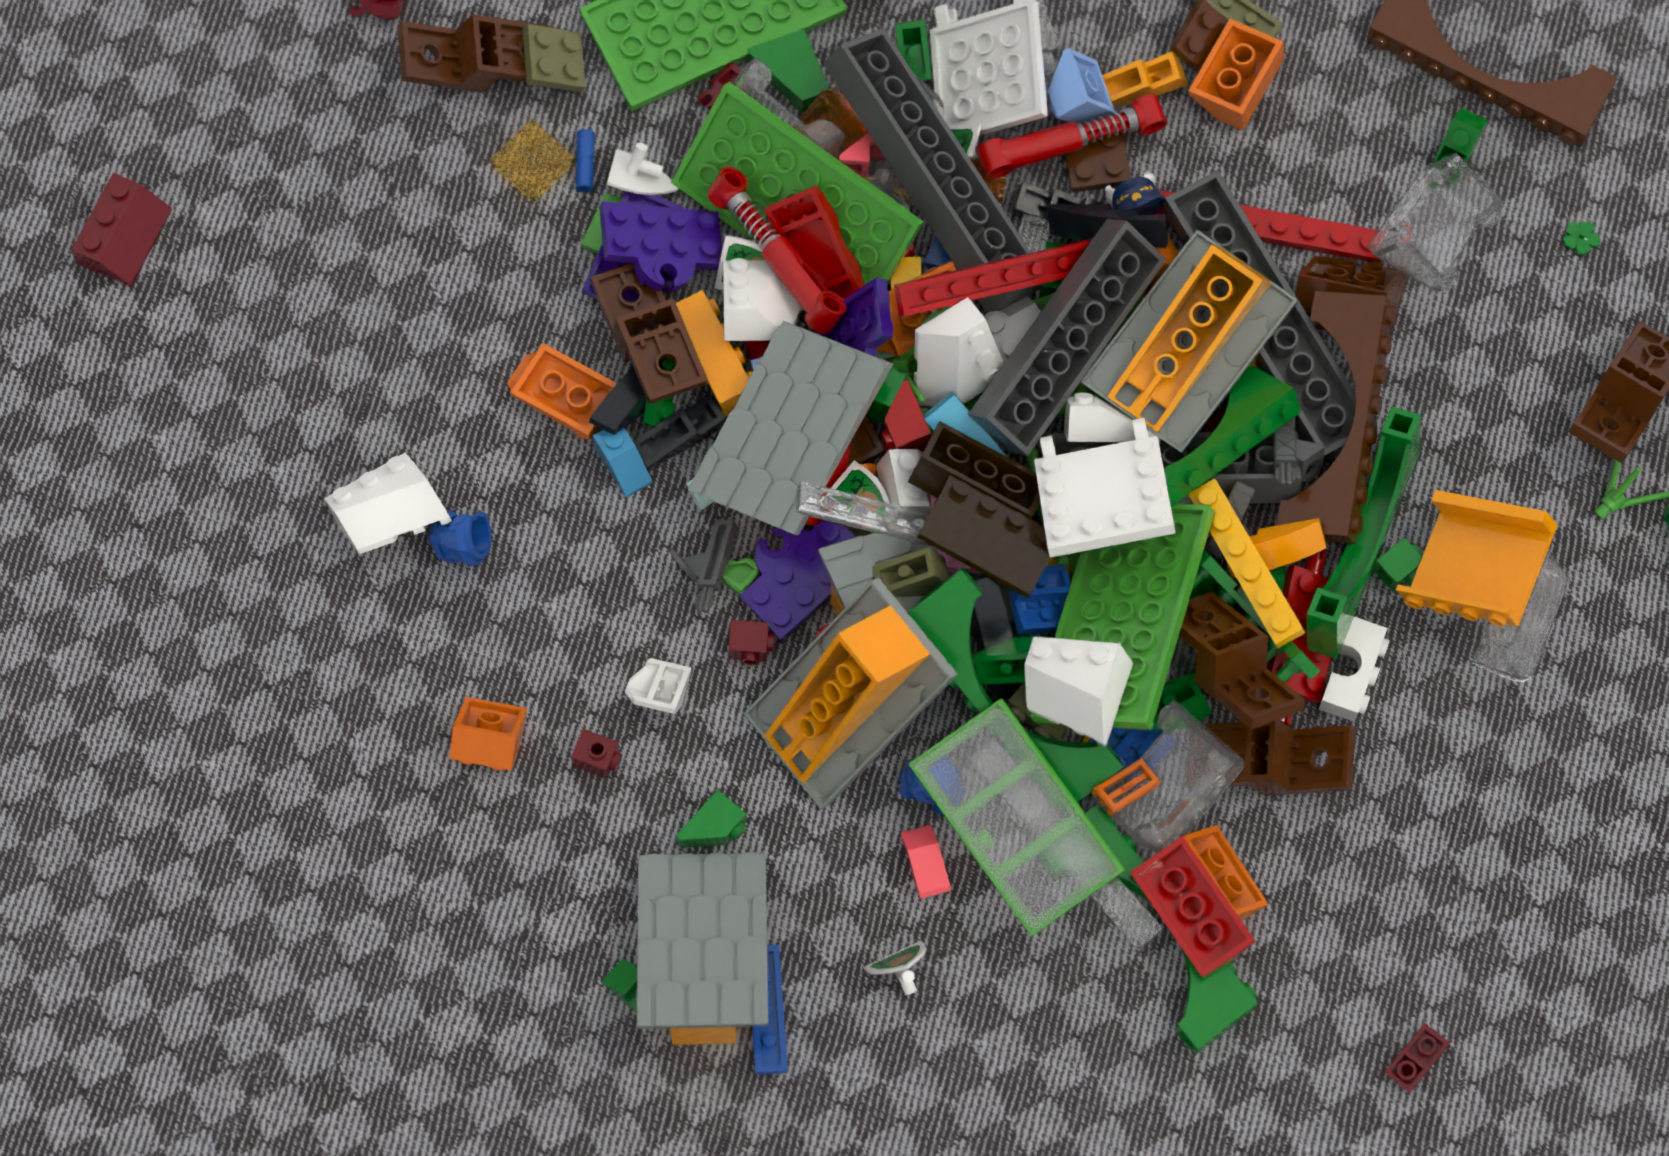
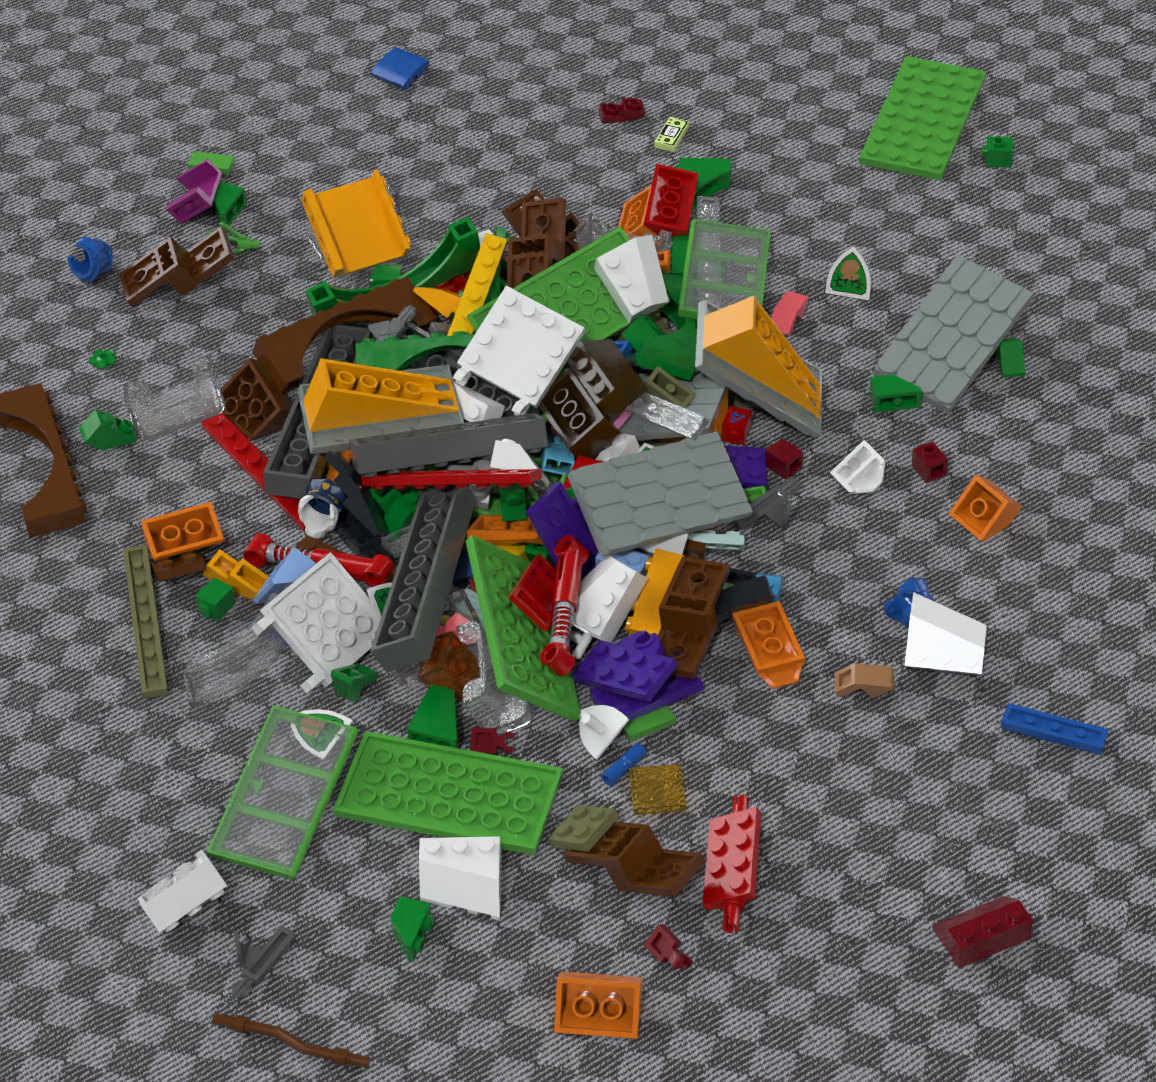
camera: 135 degrees left, 25 degrees down
(215, 502) = (1054, 728): none -> blue plate
(396, 131) = (732, 861): none -> red plate
(433, 418) = (871, 678): none -> medium nougat slope
(1135, 38) = (215, 599): none -> green brick
(1321, 1064) = (671, 134): none -> yellowish green tile

